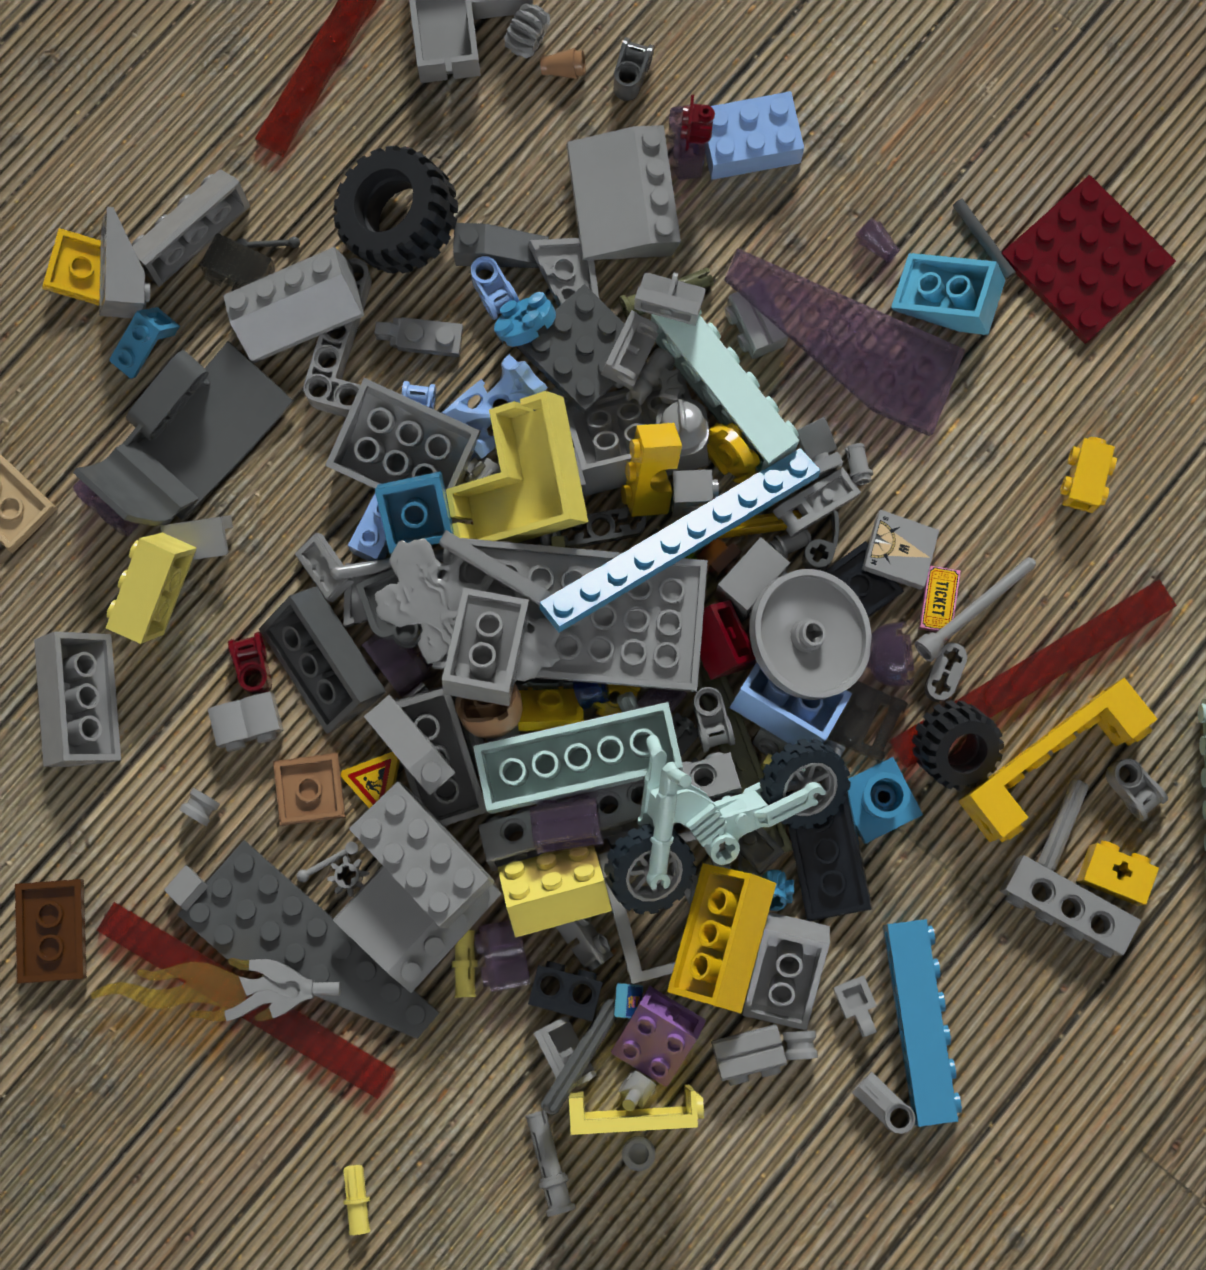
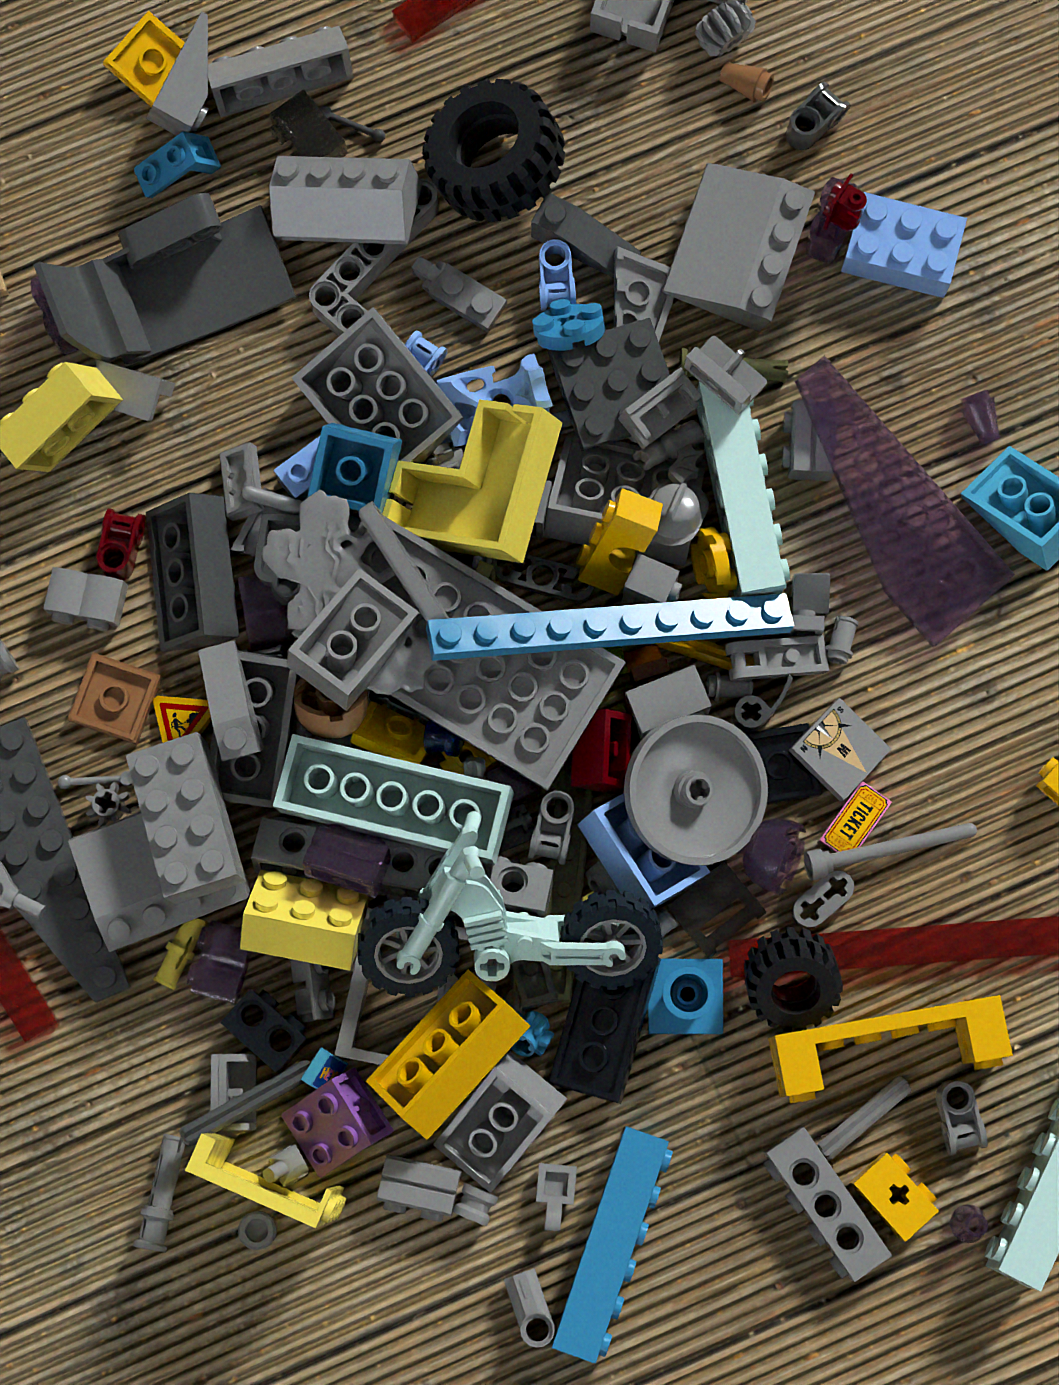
camera: 30 degrees right, 0 degrees up
(1178, 866) = (960, 1223): none -> cone

